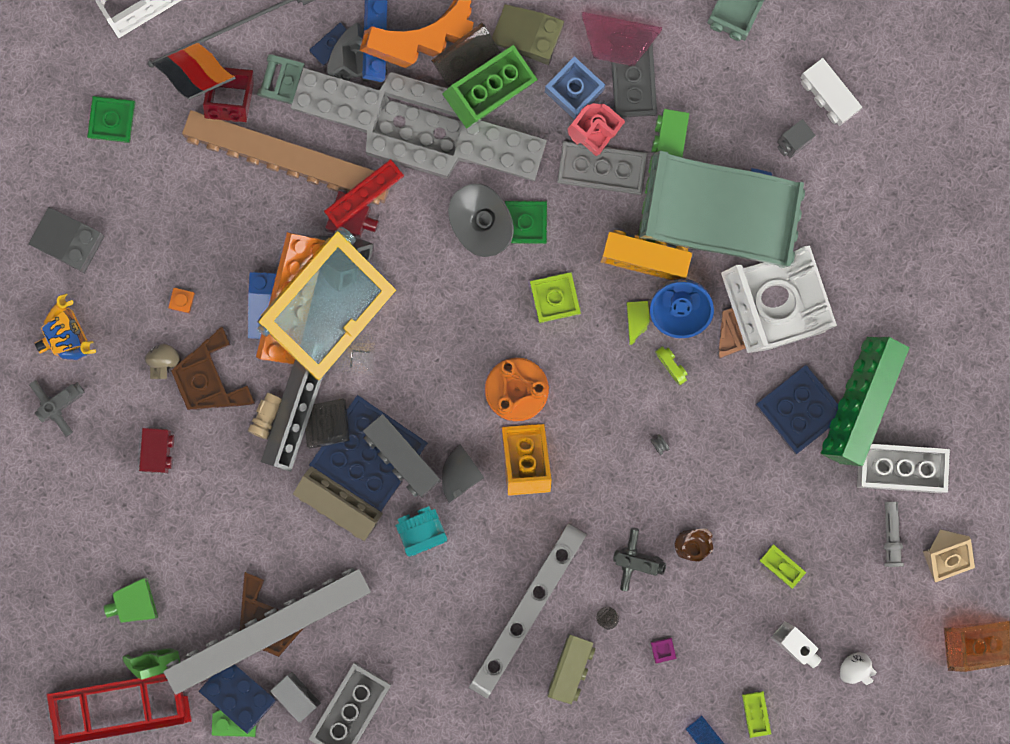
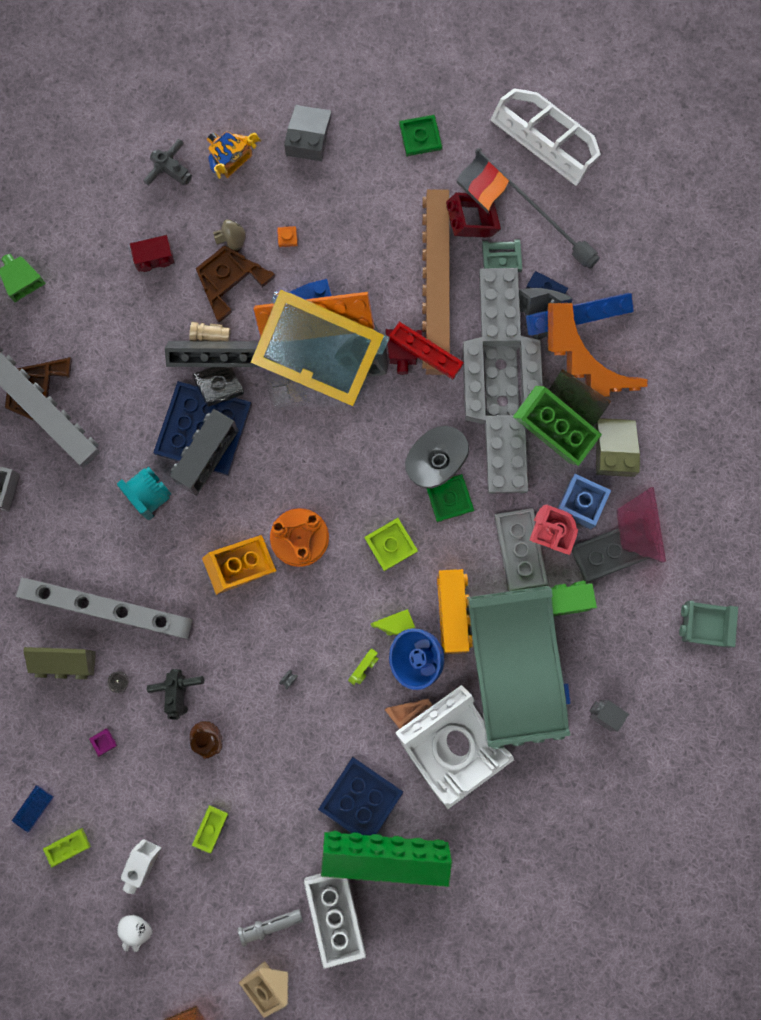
camera: 75 degrees right, 5 degrees down
(337, 503) = (150, 415): dark tan brick -> none
(459, 474) = (208, 510): dark grey brick -> none
(830, 92) = (663, 734): white brick -> none

